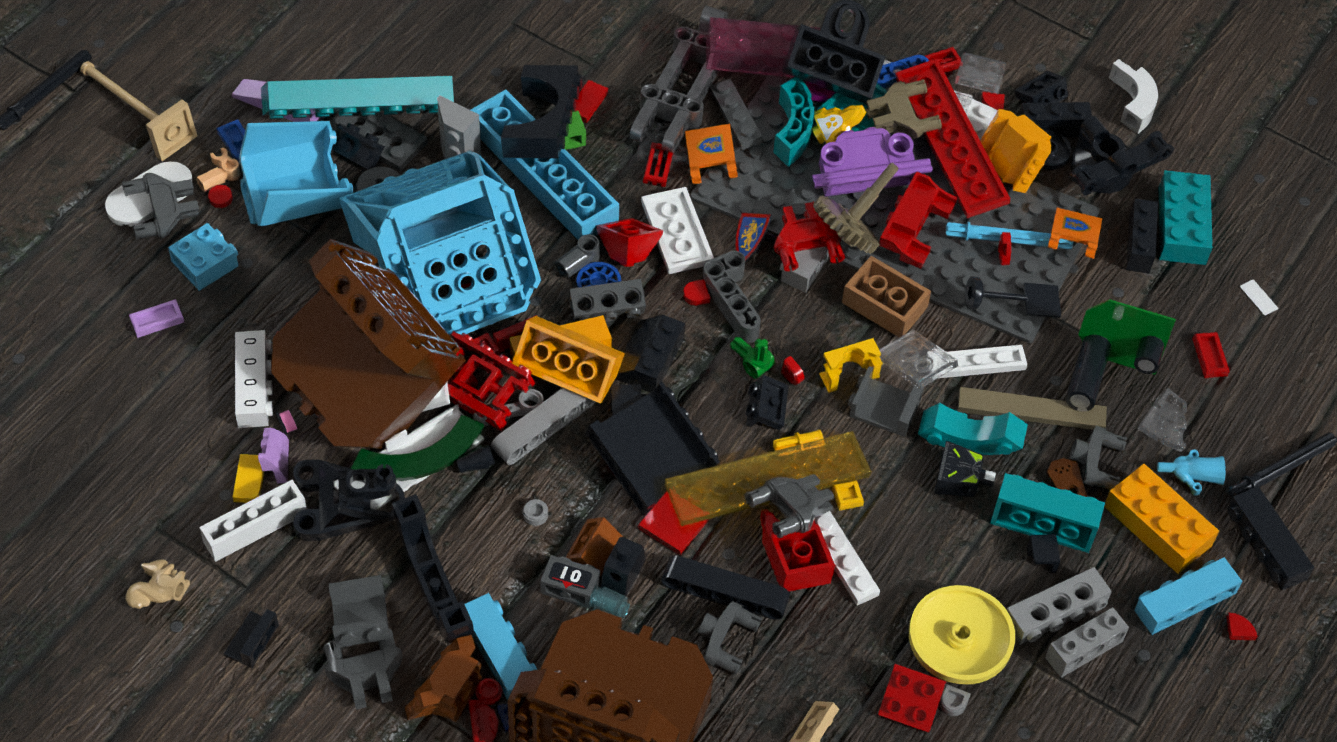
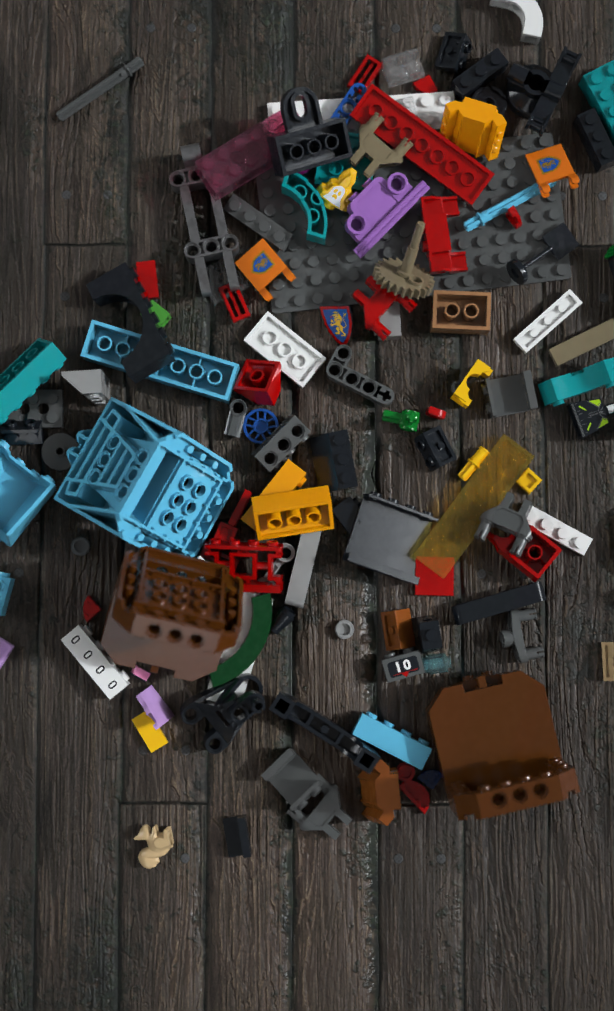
camera: 30 degrees left, 30 degrees up
(252, 520) = (179, 764): white brick -> none
(696, 293) = (331, 391): red tile -> none
(917, 359) = (511, 350): clear tile -> none

